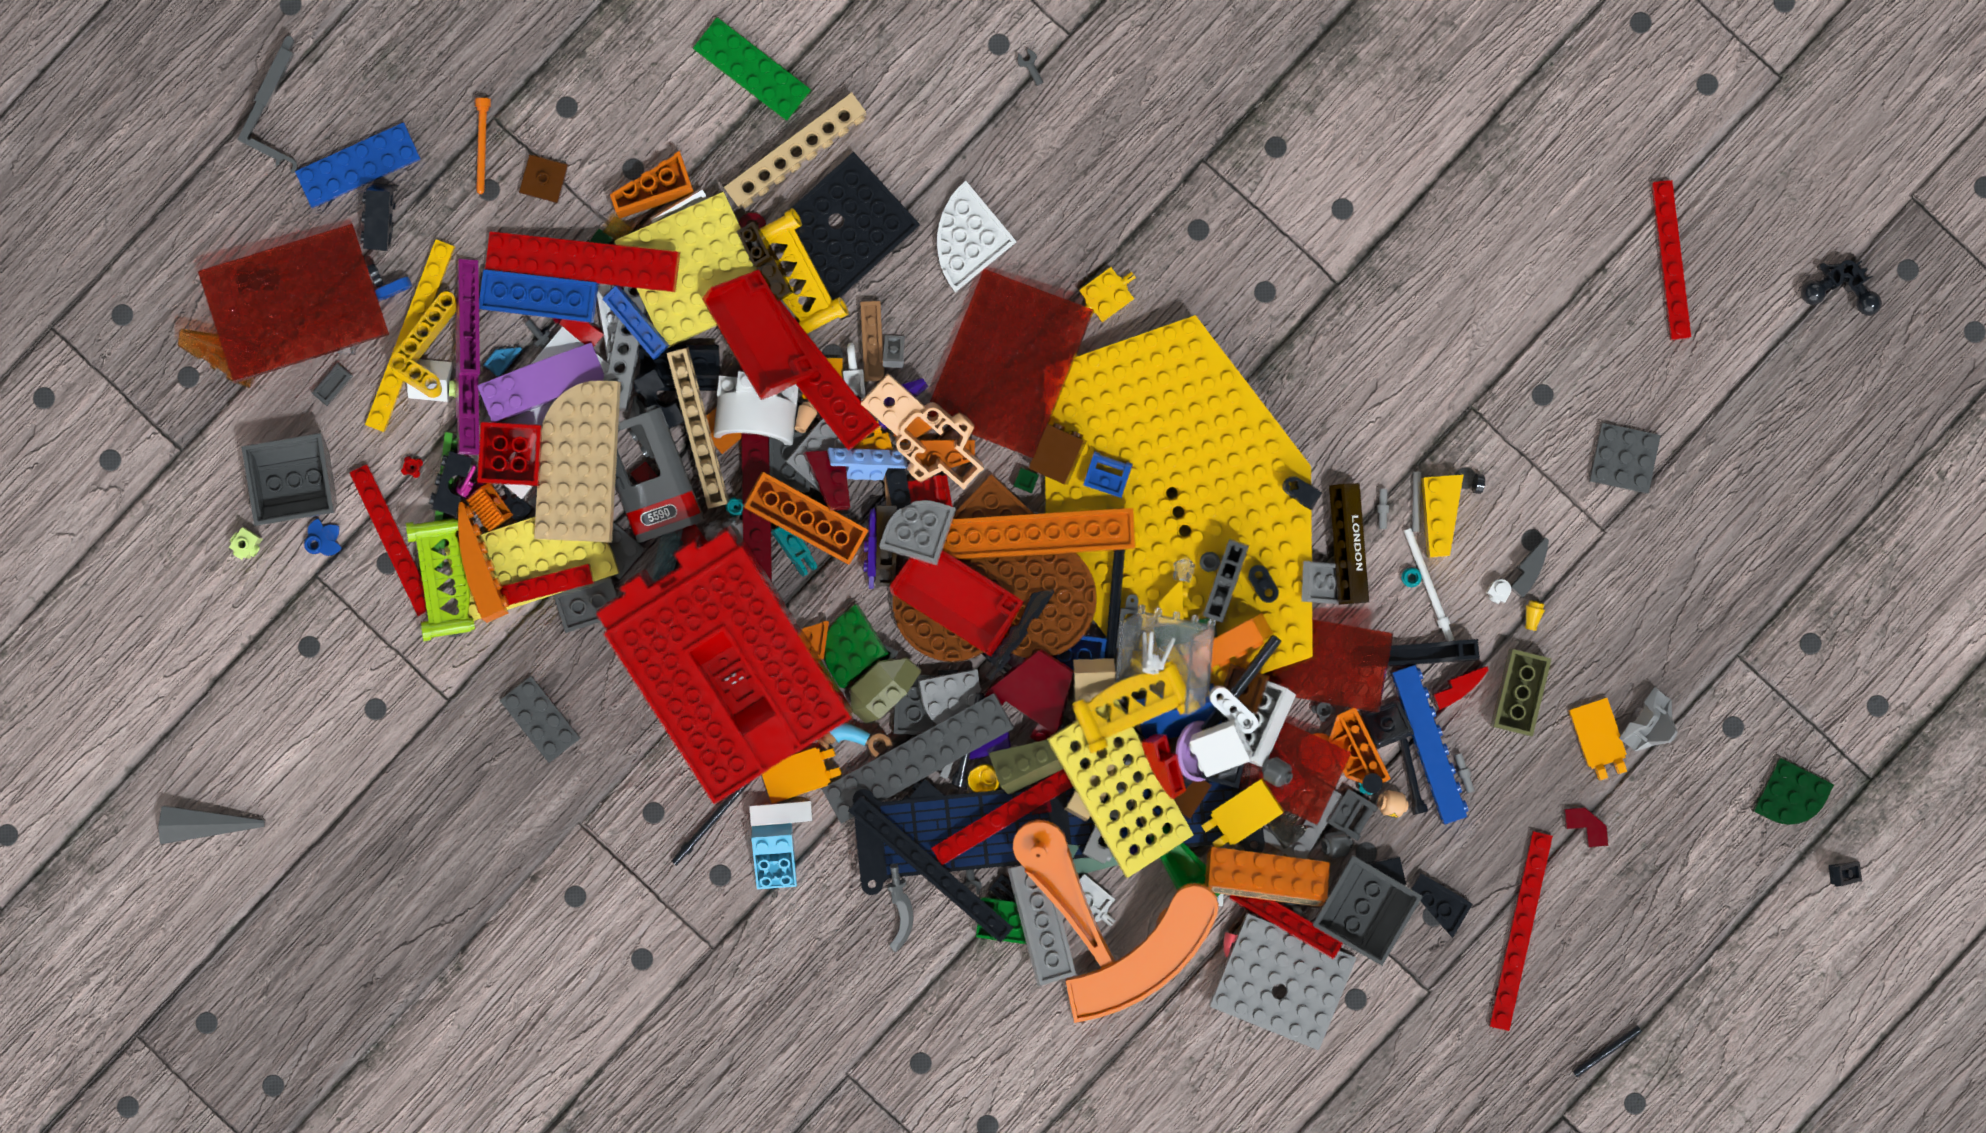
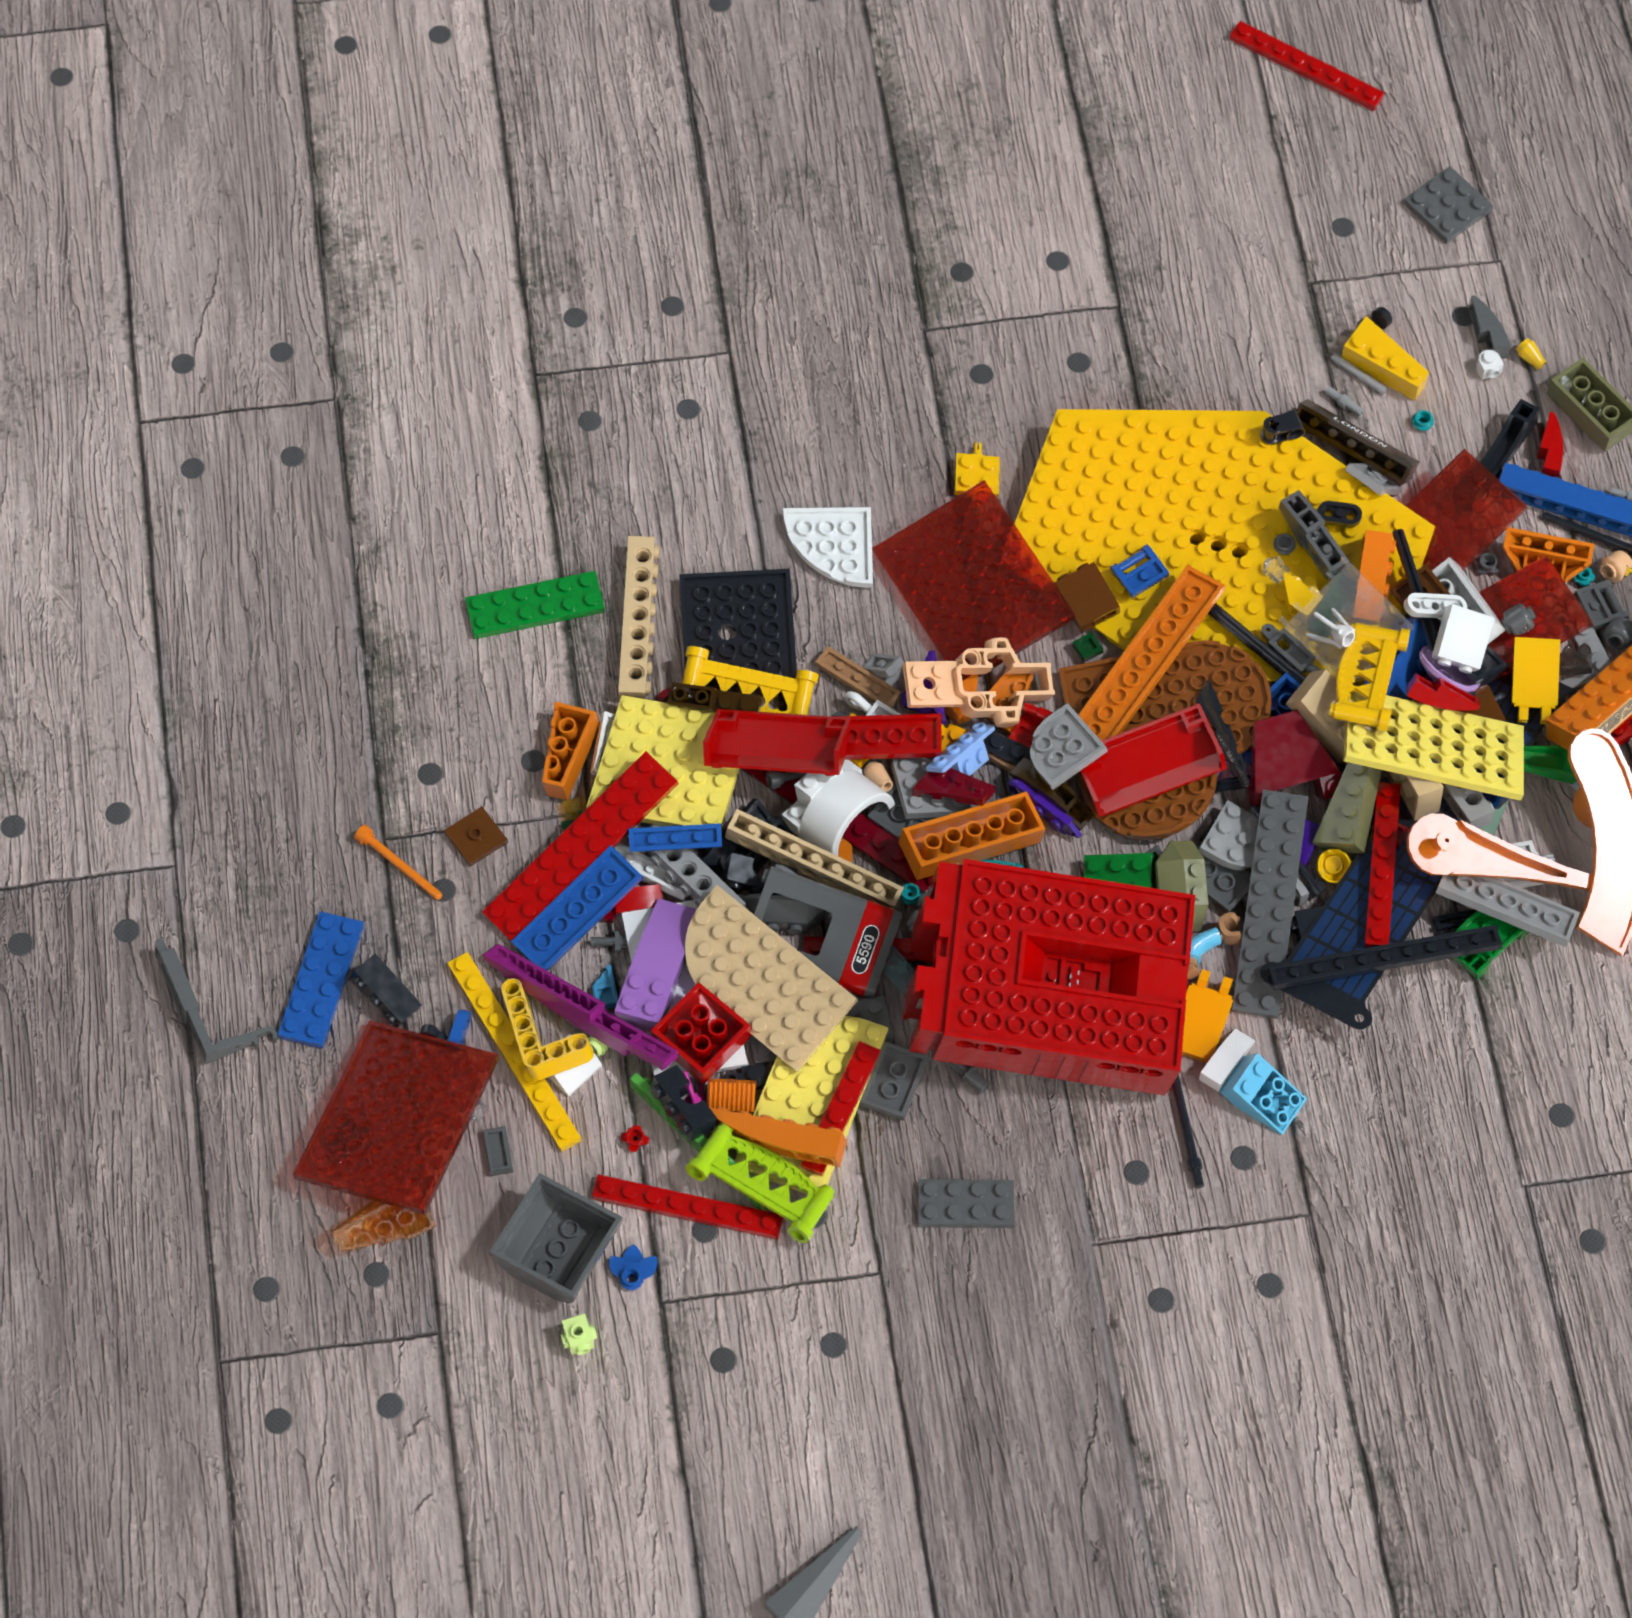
camera: 50 degrees left, 25 degrees down
(904, 907) = (1393, 1007): dark grey sword -> none
(1030, 66) = (727, 396): dark grey bar -> none
(1372, 783) = (1587, 558): black tile -> none
(1387, 725) = (1543, 517): black plate -> none
(1443, 621) = (1481, 424): white bar -> none

